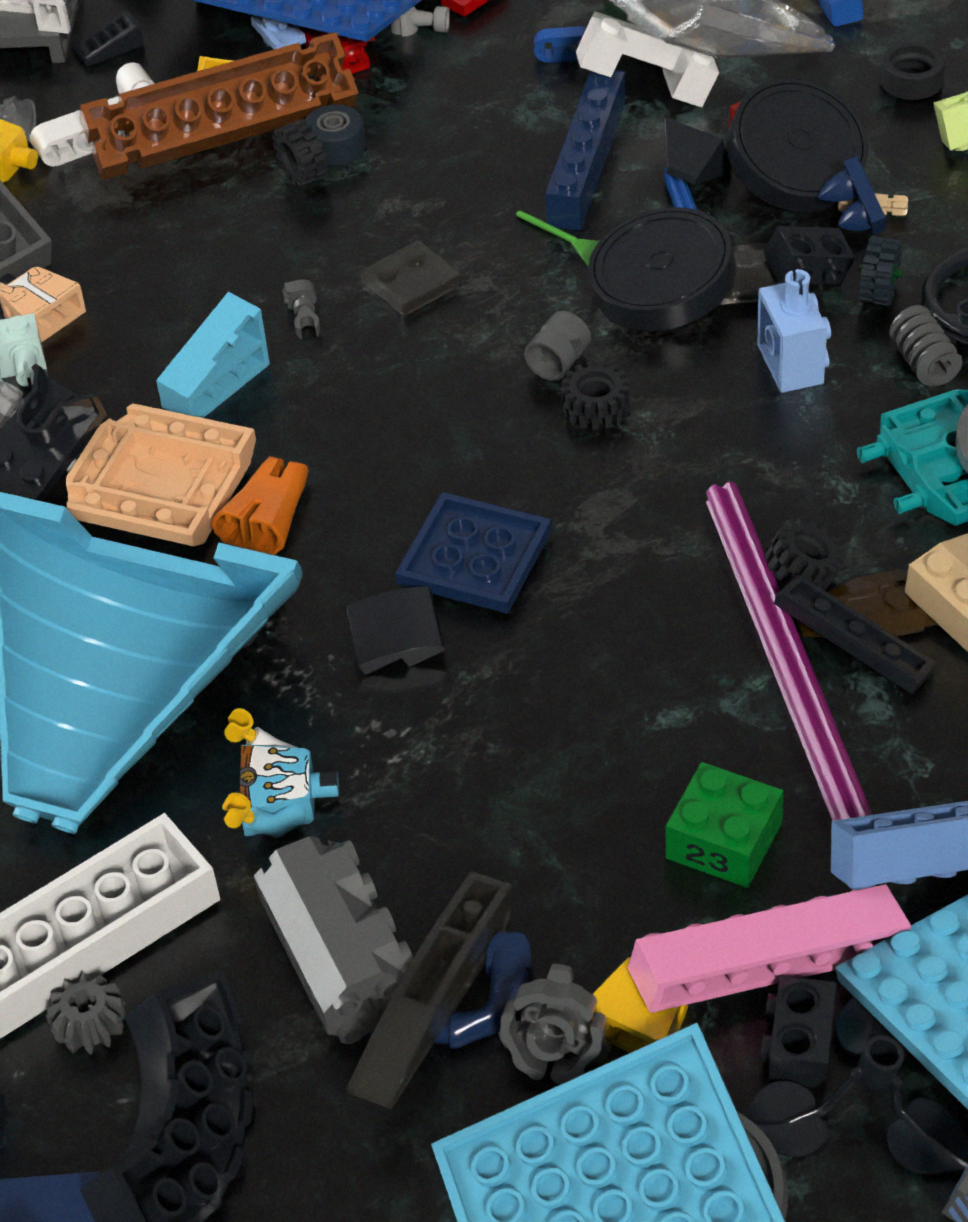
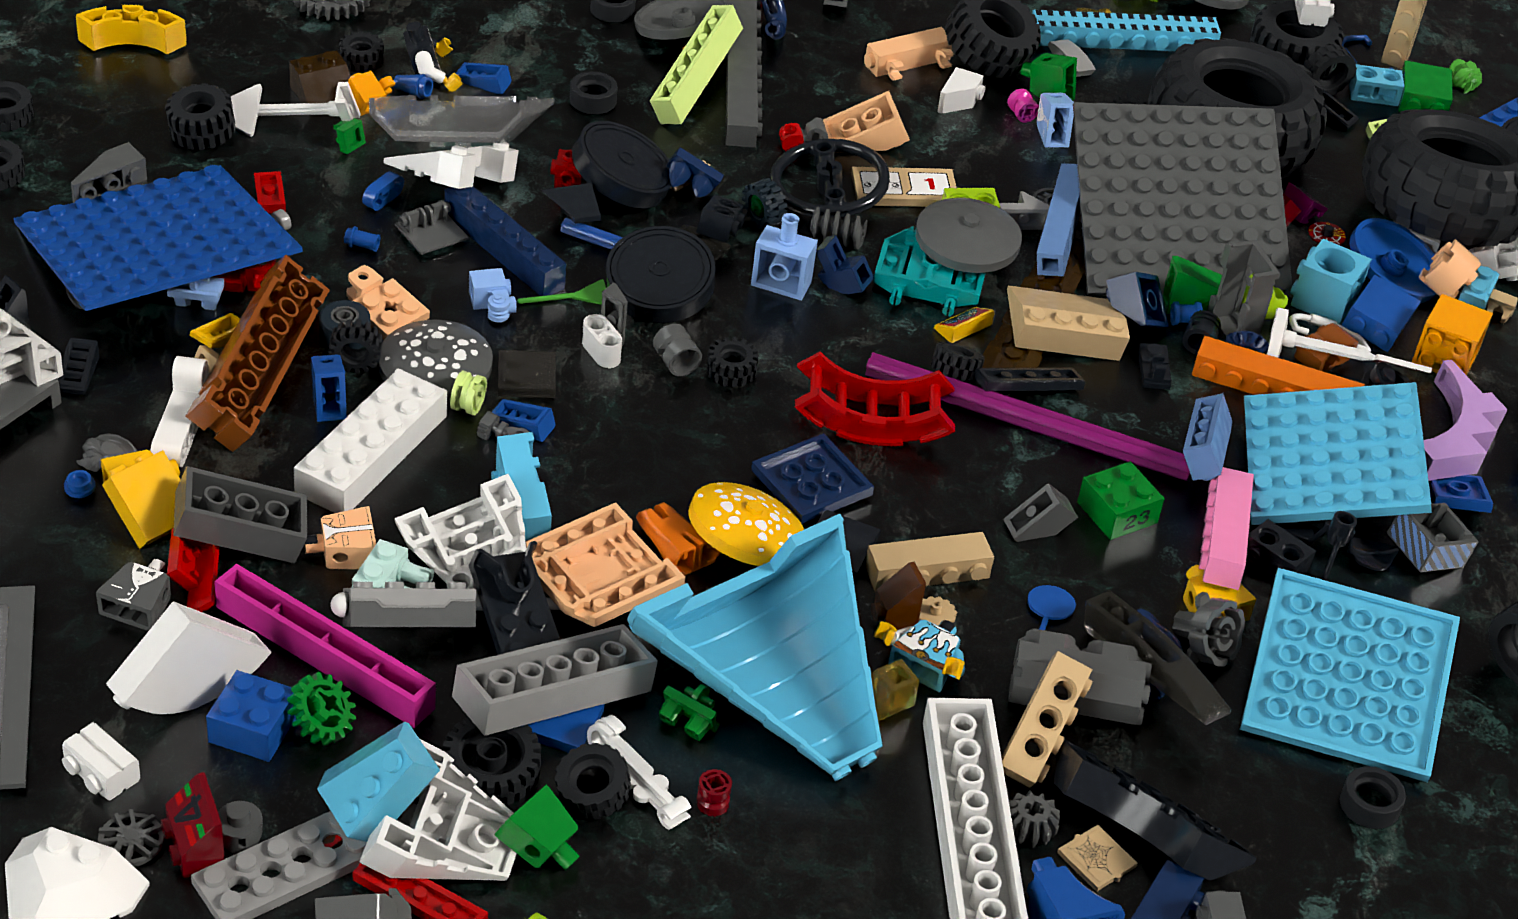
camera: 65 degrees left, 5 degrees down
(90, 1113) = (1097, 858): none -> tan piece
(108, 361) = (452, 536): none -> white wedge
(171, 784) = (894, 688): none -> clear yellow slope
(185, 239) = (370, 442): none -> white brick
(216, 929) = (1074, 678): none -> tan brick
(228, 171) = (328, 378): none -> blue torso
(321, 242) = (468, 392): none -> yellowish green wheel
(329, 719) = (900, 598): none -> reddish brown slope
(337, 531) = (742, 521): none -> yellow dish
(338, 313) = (531, 417): none -> blue slope
(360, 214) = (436, 352): none -> dark grey dish
(368, 765) = (937, 610): none -> tan piece
(399, 126) = (379, 296): none -> light nougat plate
(433, 713) = (937, 558): none -> tan brick
(475, 70) = (362, 239): none -> blue pin
(481, 851) = (1051, 603): none -> blue piece
(494, 188) = (491, 291): none -> light blue brick
(512, 292) = (602, 340): none -> white beam
(547, 100) = (430, 227): none -> dark grey hinge
(548, 269) = (615, 308): none -> dark grey slope
(611, 554) = (869, 427): none -> red fence
(620, 768) = (1041, 515): none -> dark grey slope
(851, 383) = (842, 273): none -> dark blue brick
(900, 533) = (965, 323): none -> yellow slope

